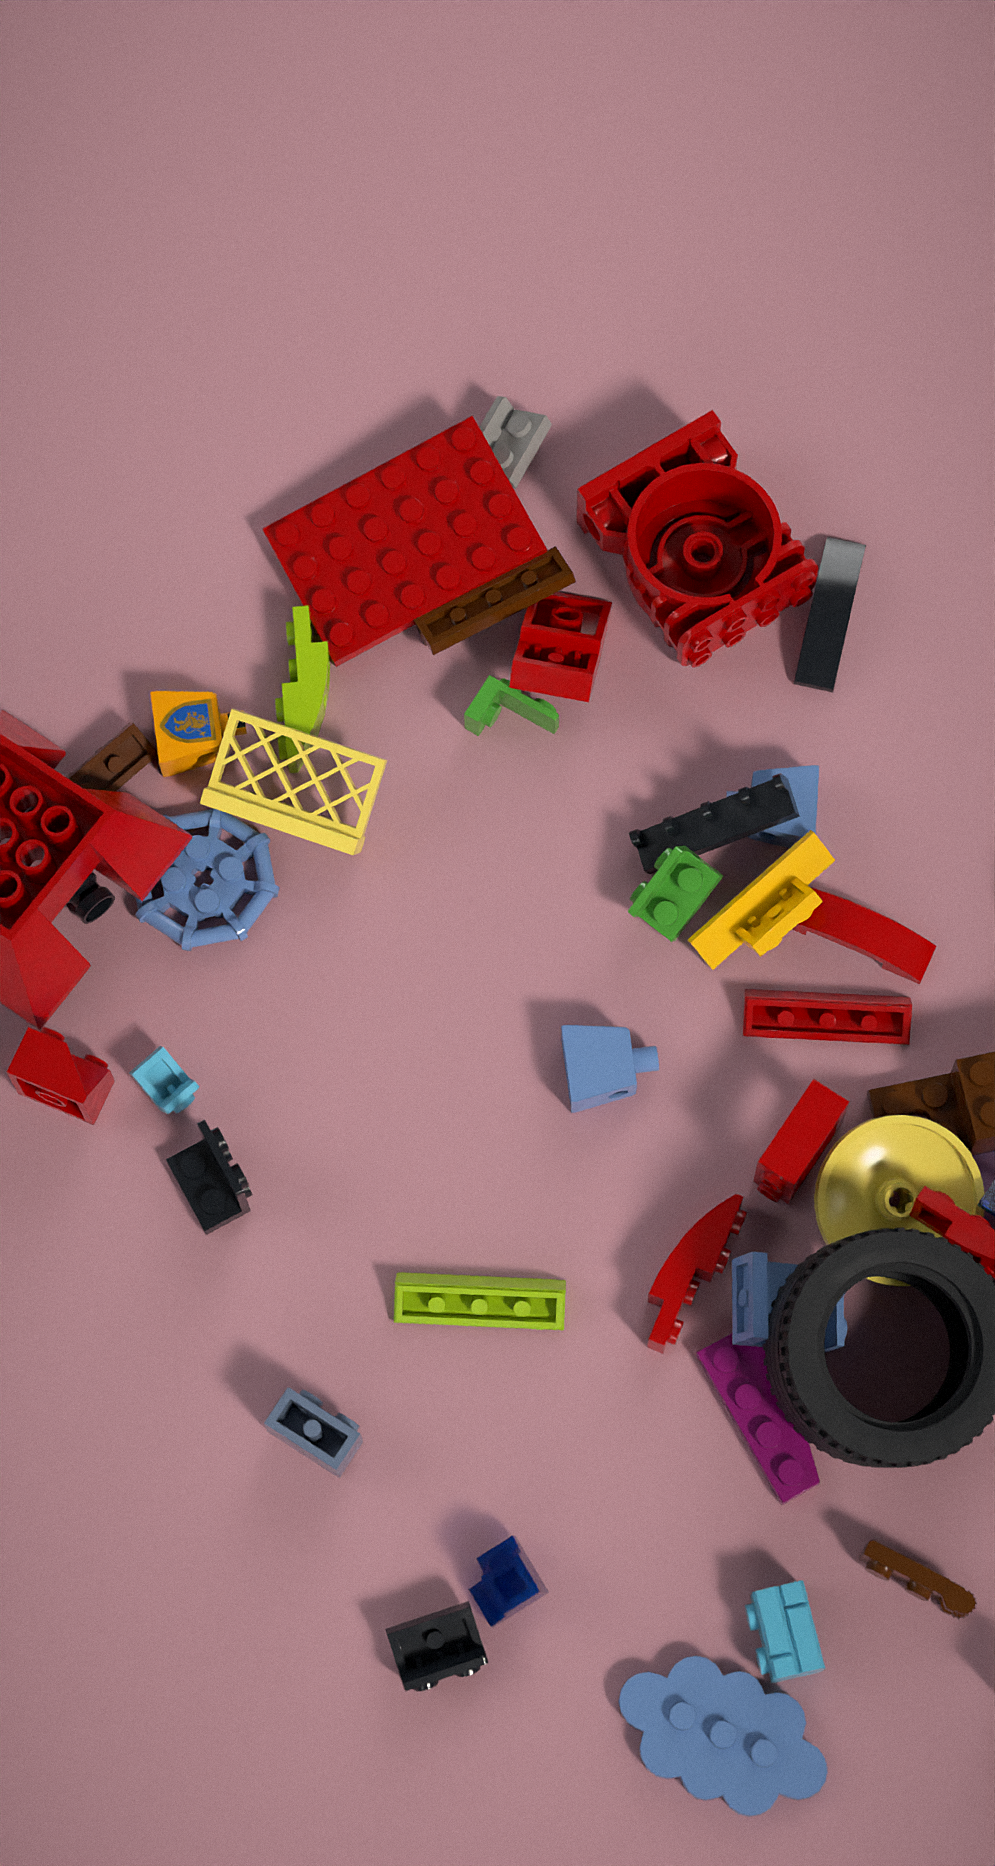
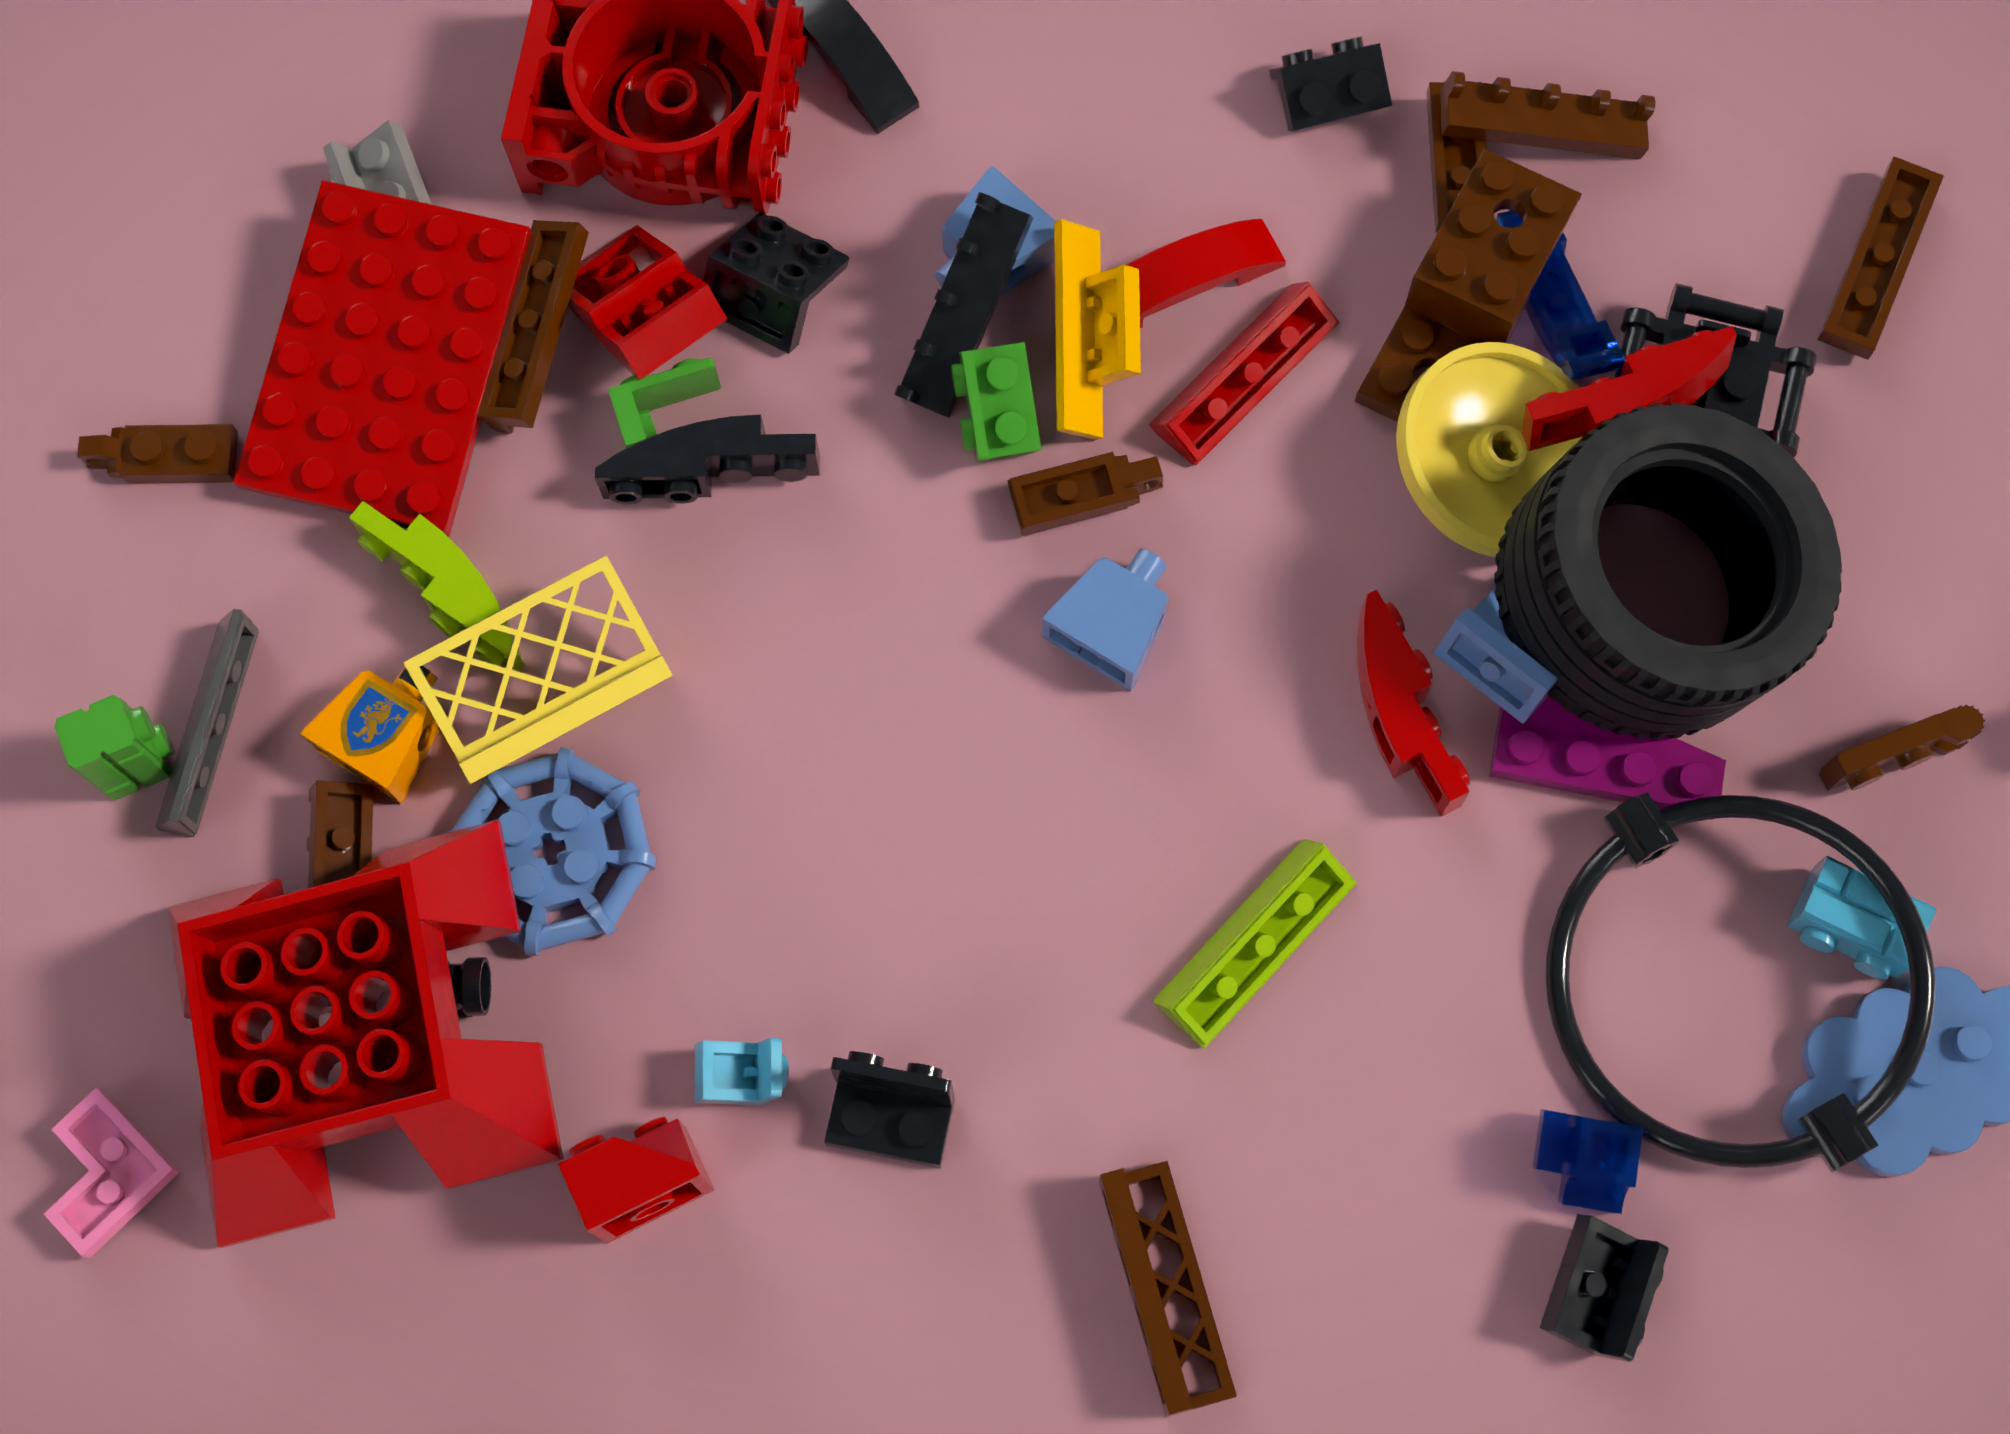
camera: 50 degrees left, 0 degrees up
(61, 605) = (115, 746): none -> bright green brick
(119, 639) = (208, 725): none -> dark grey slope
(226, 1397) = (1145, 1293): none -> reddish brown fence
(250, 476) = (164, 453): none -> reddish brown hinge
(313, 1431) = (1265, 1226): sand blue brick -> none
(490, 754) = (685, 459): none -> black slope
(637, 1704) = (1833, 1129): none -> black piece
(643, 702) = (769, 277): none -> black bracket
(665, 984) = (1081, 490): none -> reddish brown hinge
(800, 1142) = (1366, 490): red window -> none

